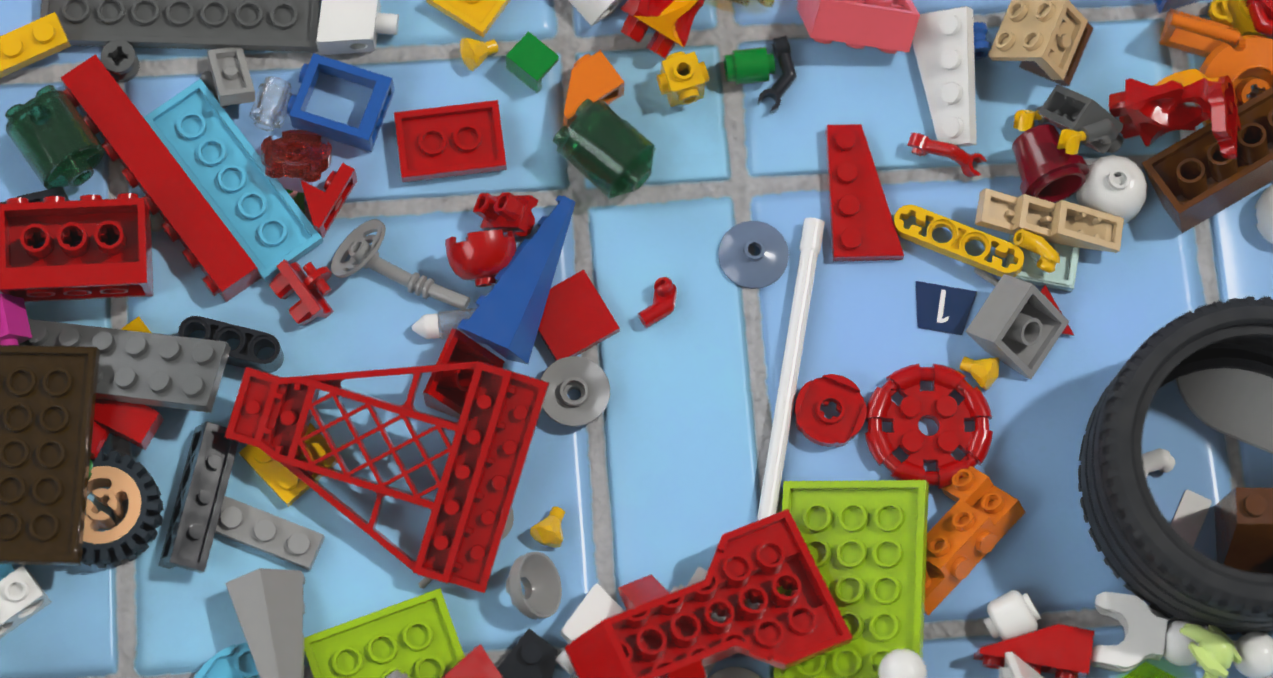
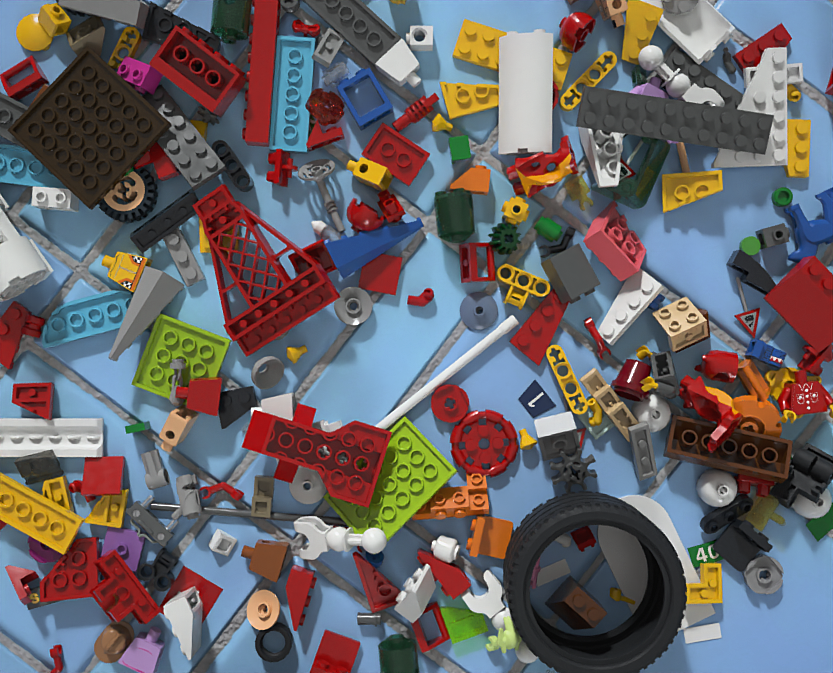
camera: 45 degrees right, 15 degrees up
(135, 305) = (207, 117): none -> dark grey plant
(187, 72) = (299, 26): none -> red piece
(200, 617) = (126, 269): none -> torso
(427, 63) = (415, 112): none -> red hinge
(439, 191) = (370, 173): none -> yellow torso
(684, 199) = (468, 263): none -> red tile
(701, 126) = (511, 238): none -> dark green gear
(783, 184) = (516, 290): none -> yellow piece
(834, 97) = (571, 274): none -> dark grey brick
(1055, 546) = (489, 536): none -> orange bracket
(1089, 343) = (567, 474): none -> dark grey gear
(1135, 50) = (719, 366): none -> red piece
(1148, 245) = (642, 451): none -> light grey plate
(1183, 434) = (583, 538): none -> red tile

